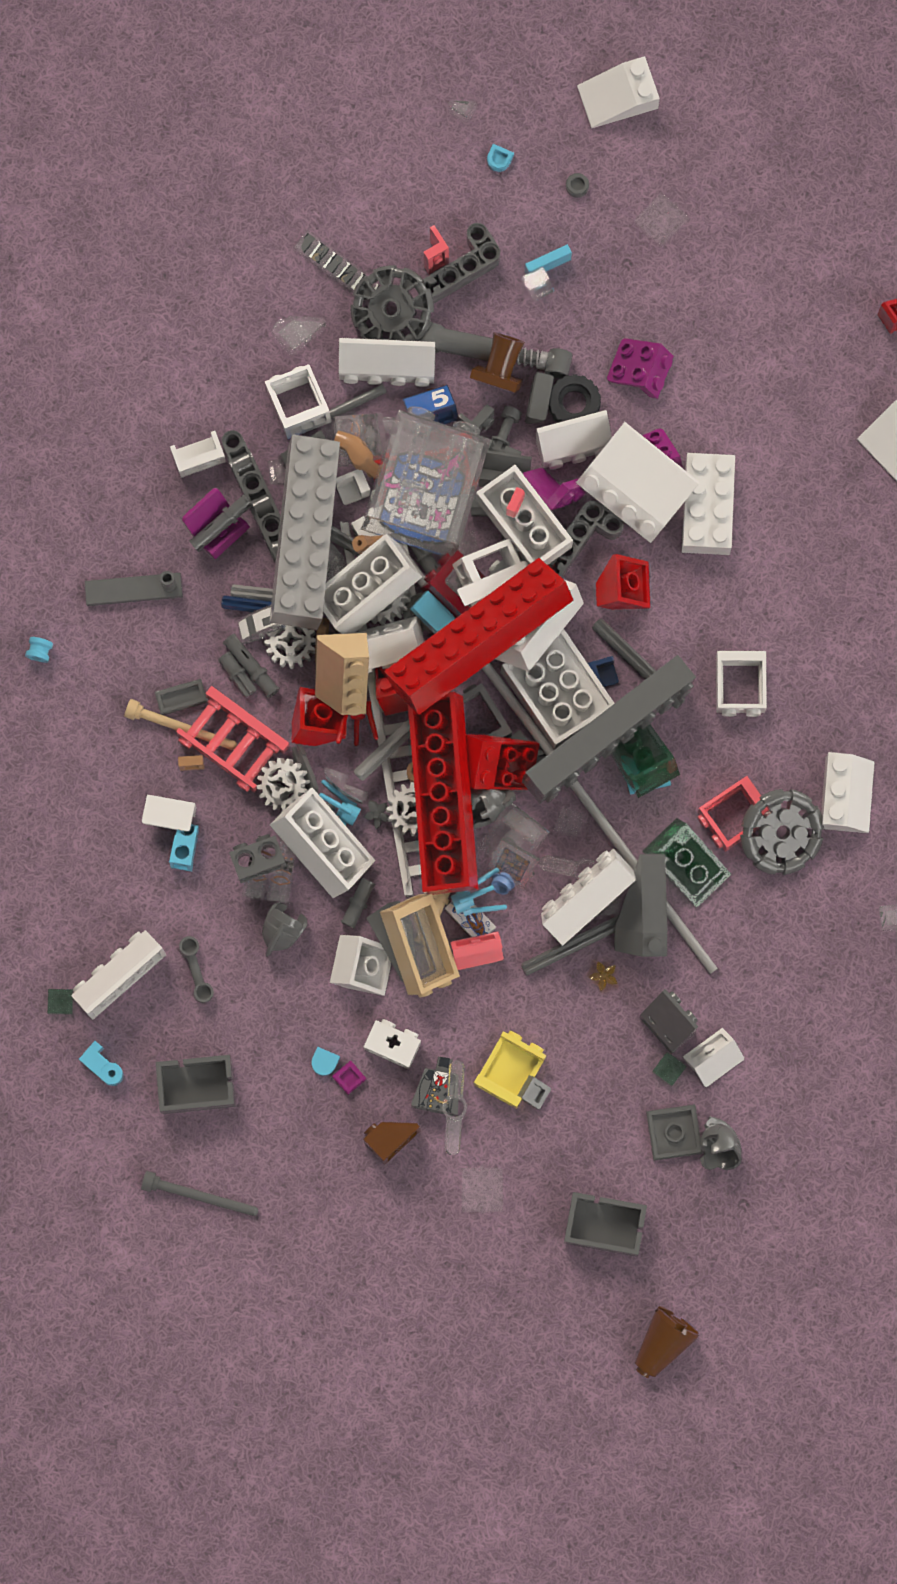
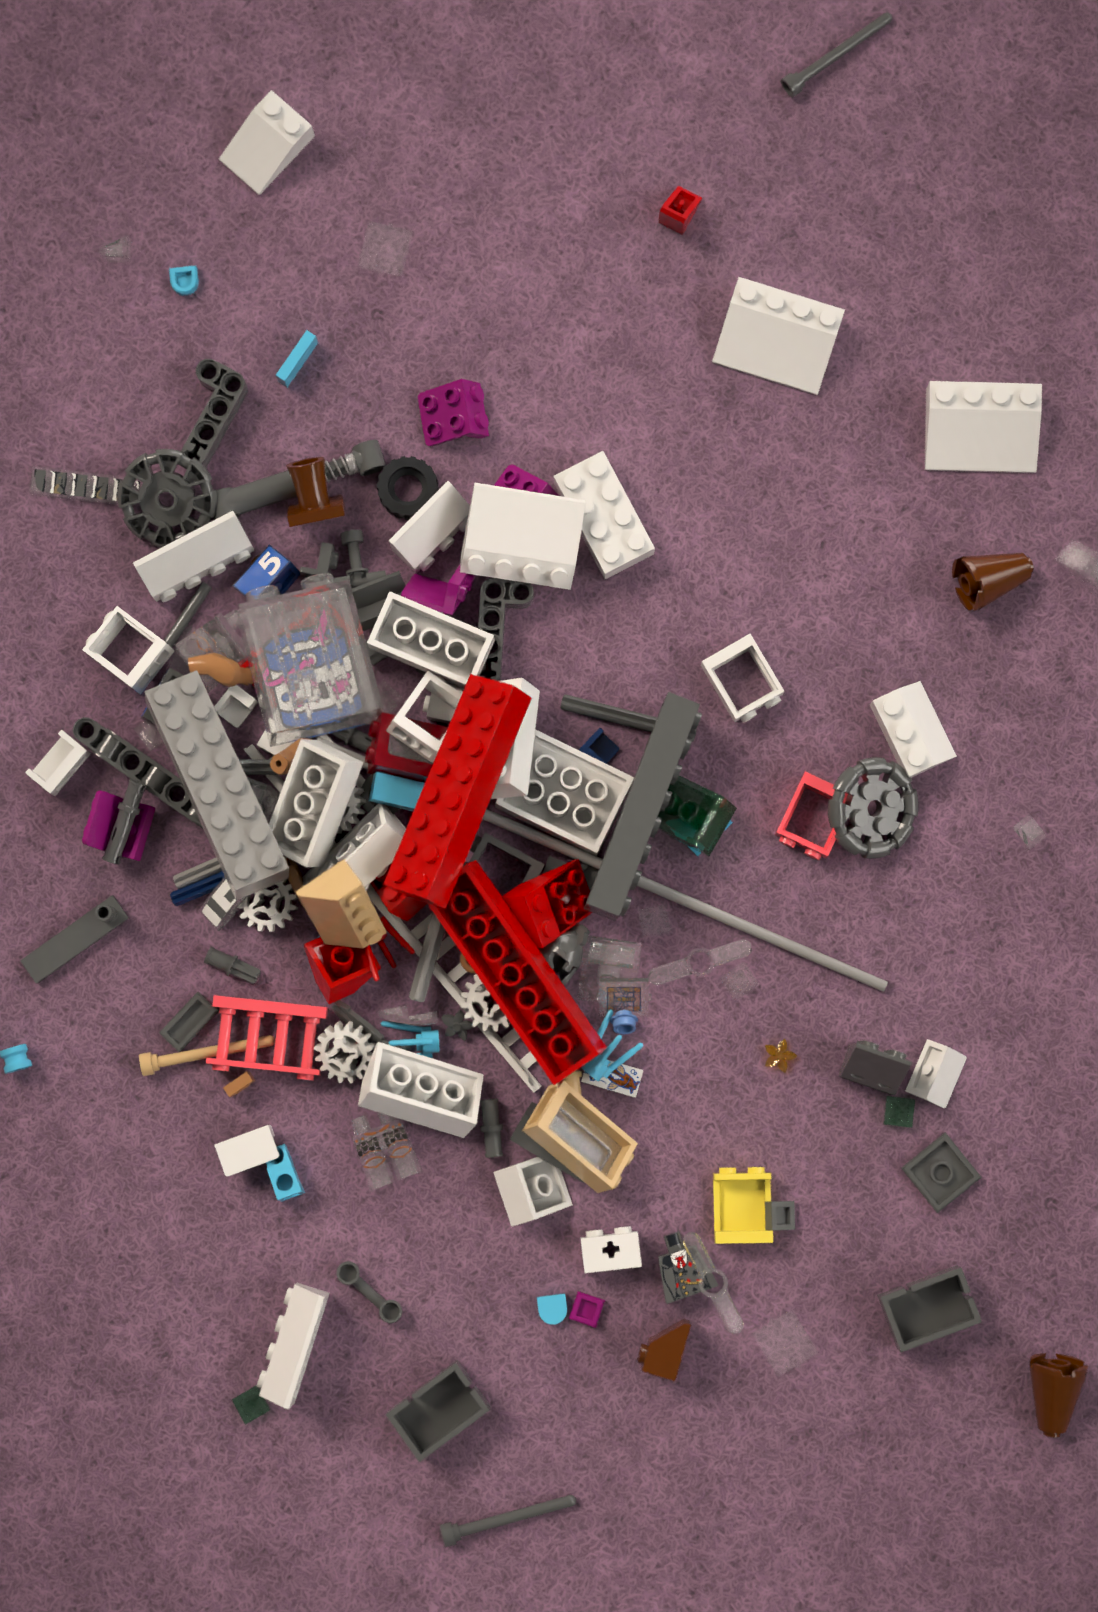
camera: 25 degrees left, 5 degrees up
(106, 1071) = (332, 1447): medium azure leg -> none
(253, 668) = (252, 952): dark grey pin -> none
(260, 865) = (371, 1151): dark grey brick -> none
(280, 929) = (431, 1204): dark grey helmet -> none
(297, 332) = (85, 578): clear slope -> none
(438, 254) = (181, 417): coral panel -> none
(477, 950) = (639, 1105): coral panel -> none
(483, 587) = (435, 732): white sticker -> none
(515, 502) = (414, 631): coral tile -> none
(538, 284) = (300, 387): clear slope -> none
(539, 398) = (370, 505): dark grey slope -> none
(571, 946) = (733, 1038): dark grey axle -> none
(577, 185) = (279, 262): dark grey tile -> none
(587, 896) = (720, 989): white brick -> none
(624, 584) = (567, 646): red slope -> none
(643, 918) = (786, 976): dark grey wedge -> none
(688, 862) = (794, 893): clear green slope -> none
(720, 1145) = (995, 1159): dark grey helmet -> none

